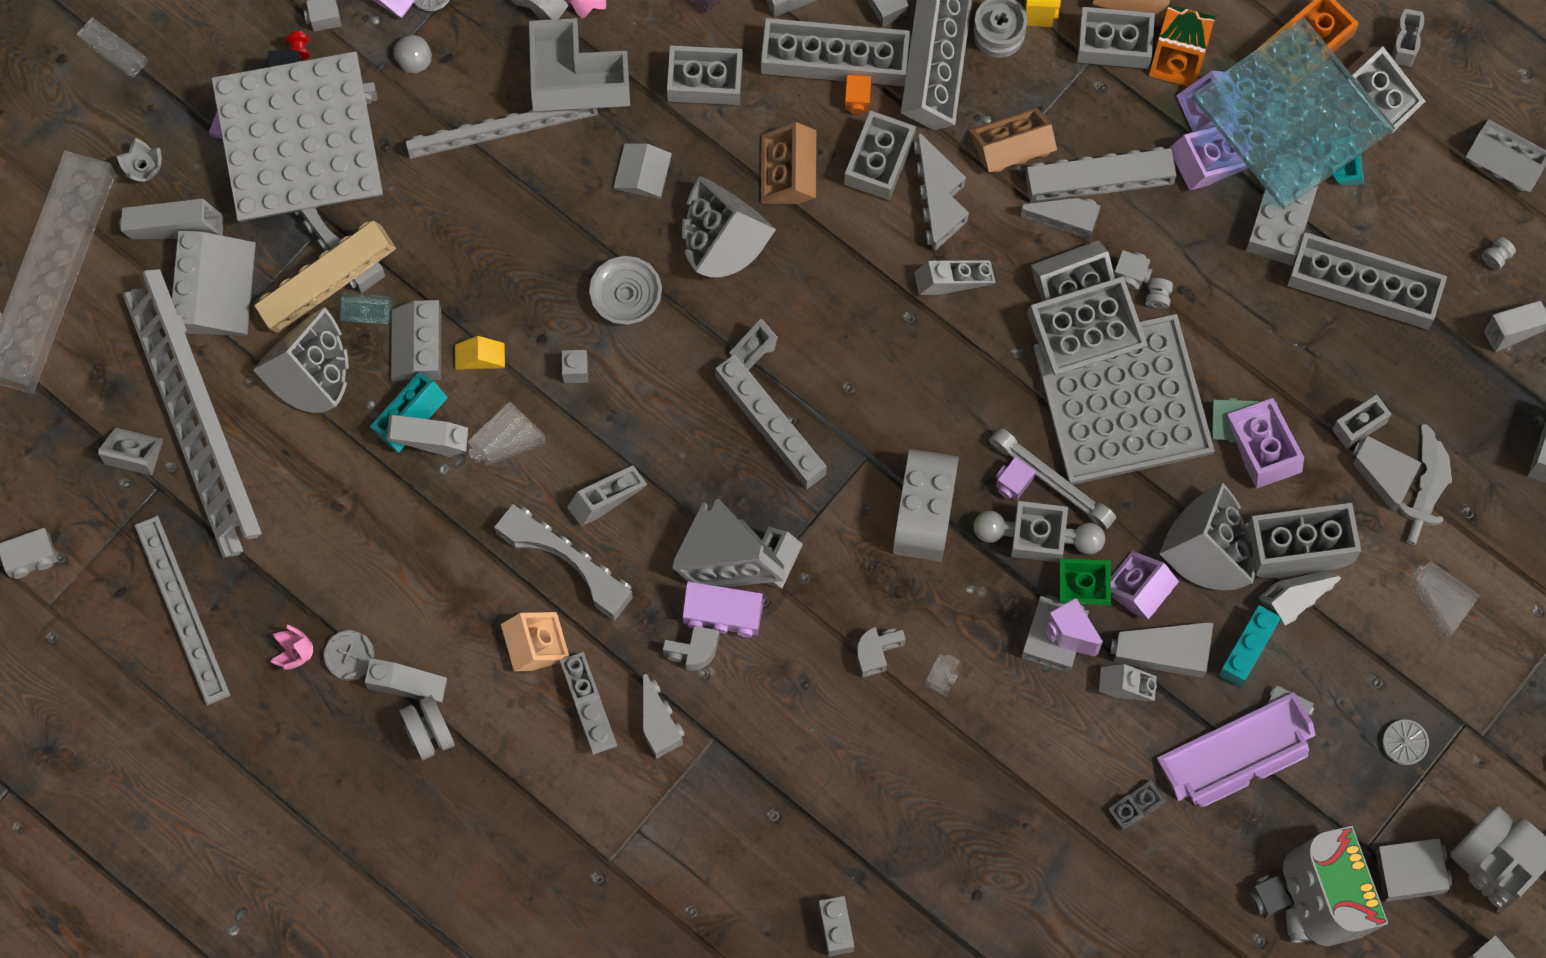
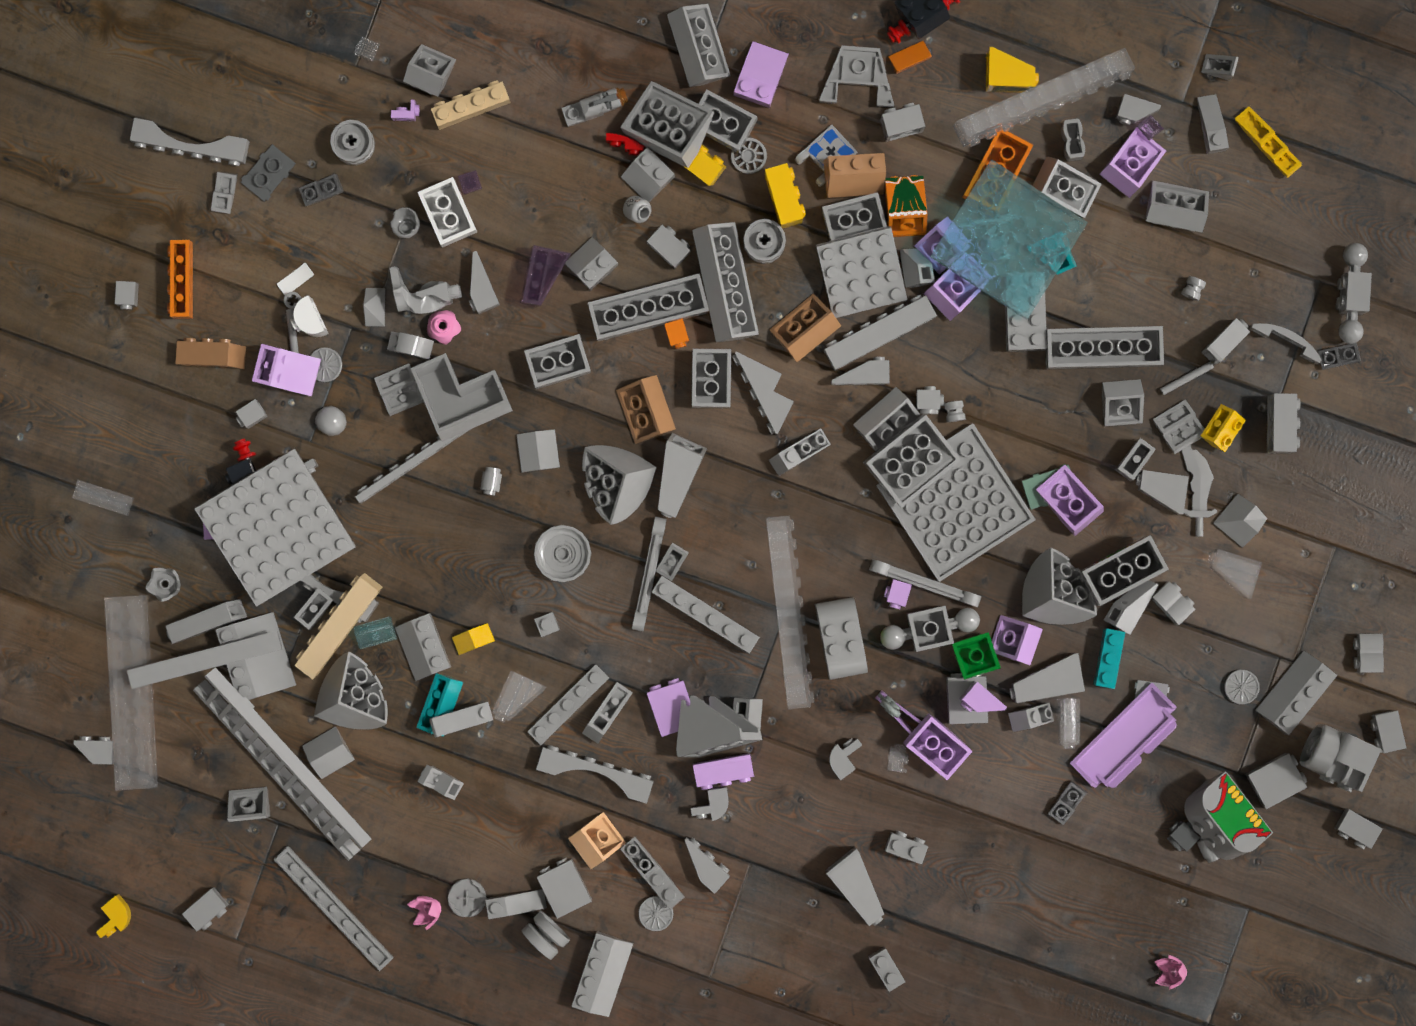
camera: 20 degrees left, 15 degrees up
(151, 257) = (204, 659): none -> light grey tile
(252, 426) = (328, 753): none -> light grey slope
(304, 249) = (314, 609): none -> light grey slope
(372, 501) = (440, 781): none -> light grey brick
(472, 683) = (564, 887): none -> light grey brick
(477, 805) = (602, 974): none -> light grey slope
(506, 47) = (399, 389): none -> light grey slope
(563, 470) = (568, 704): none -> light grey plate
(573, 182) = (491, 481): none -> light grey brick
(573, 757) = (655, 914): none -> light grey wheel
(680, 509) = (667, 705): none -> lavender brick
(690, 397) = (649, 574): none -> light grey piece
(799, 249) = (679, 469): none -> light grey slope
(834, 804) = (854, 882): none -> light grey slope
(872, 456) = (788, 612): none -> clear brick
(915, 784) = (905, 847): none -> light grey brick
(991, 659) = (930, 739): none -> lavender slope
(1103, 97) = (861, 272): none -> light grey plate
(1169, 118) = (916, 268): none -> light grey slope
(1173, 702) = (1068, 722): none -> clear slope
(1352, 608) = (1173, 603): none -> light grey brick
(1368, 354) = (1122, 402): none -> light grey slope
(1429, 407) = (1179, 426): none -> light grey slope
(1456, 354) = (1186, 378): none -> light grey bar
(1469, 542) = (1240, 520): none -> light grey slope
(1470, 89) = (1132, 163): none -> lavender slope
(1472, 771) = (1296, 693): none -> light grey slope
(1482, 422) = (1223, 428): none -> yellow brick
(1495, 32) = (1135, 109): none -> light grey slope
(1505, 57) = (1150, 127): none -> clear purple plate

